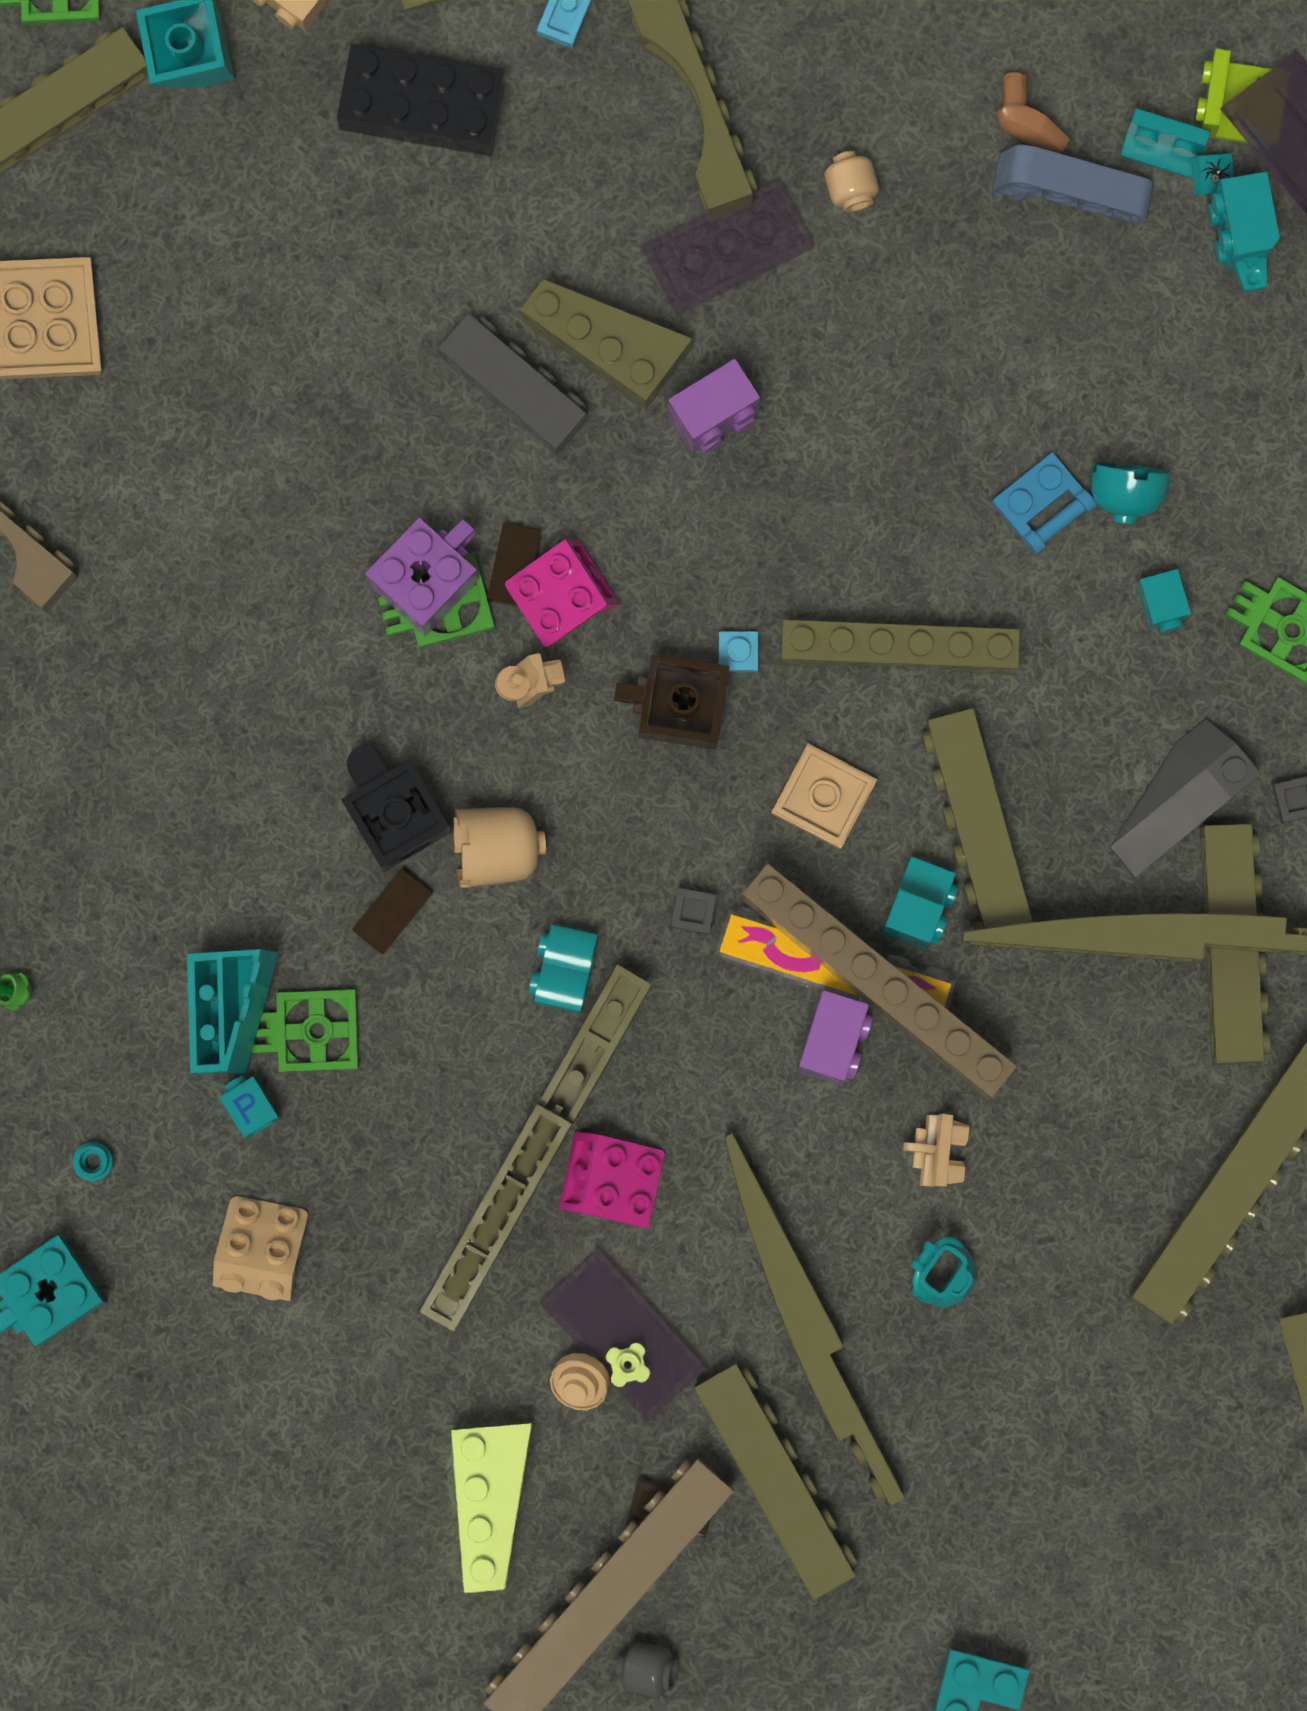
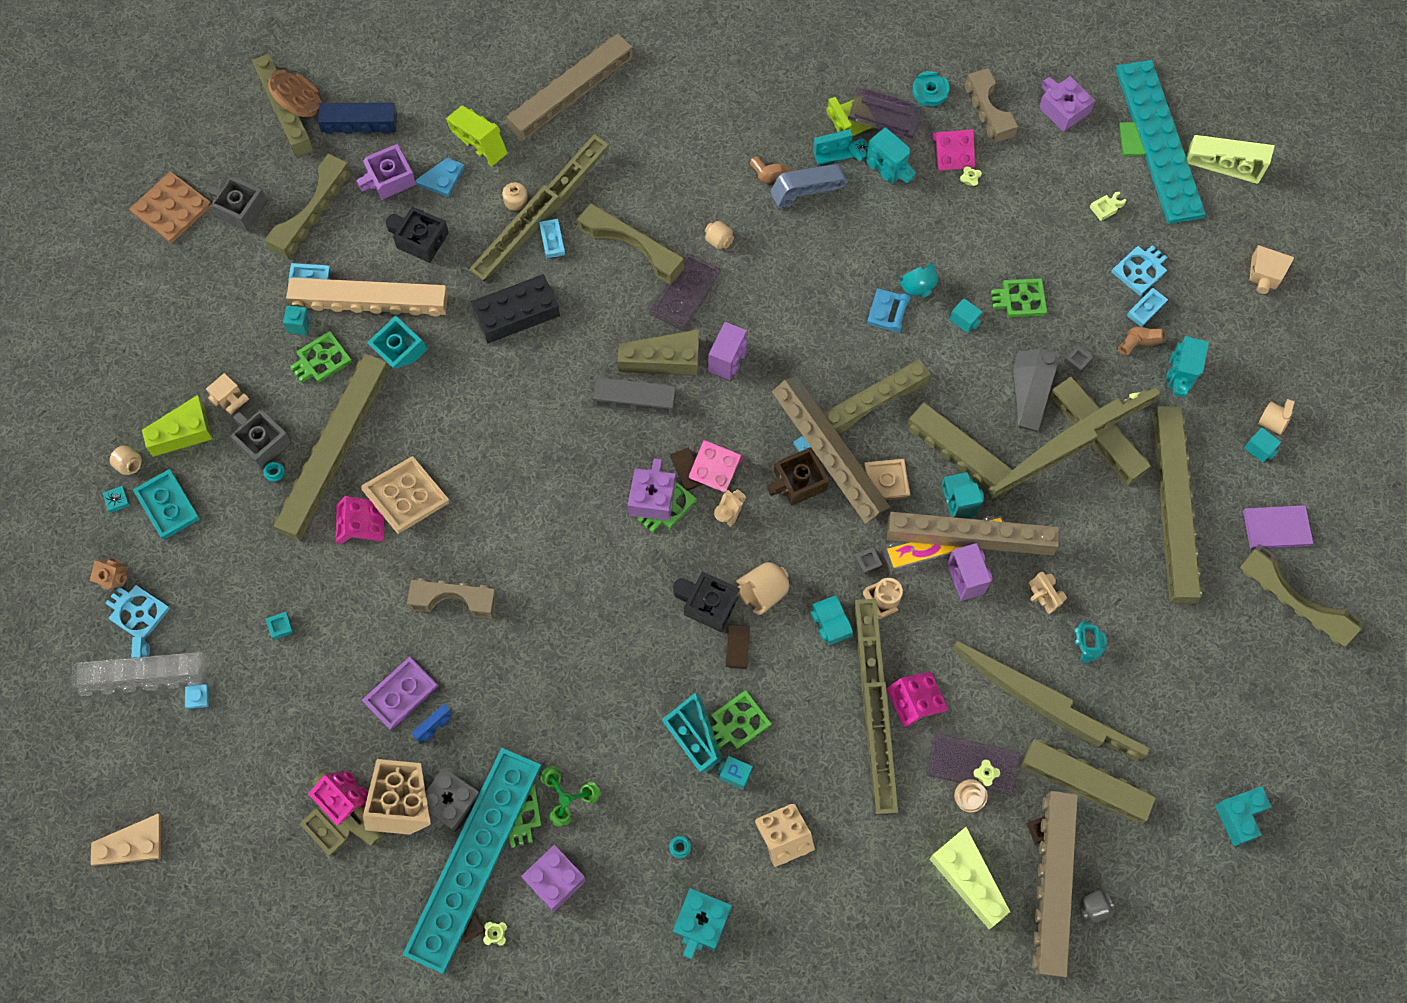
camera: 35 degrees left, 15 degrees down
(680, 986) = (887, 594): none -> tan piece
(758, 690) = (831, 449): none -> dark tan brick

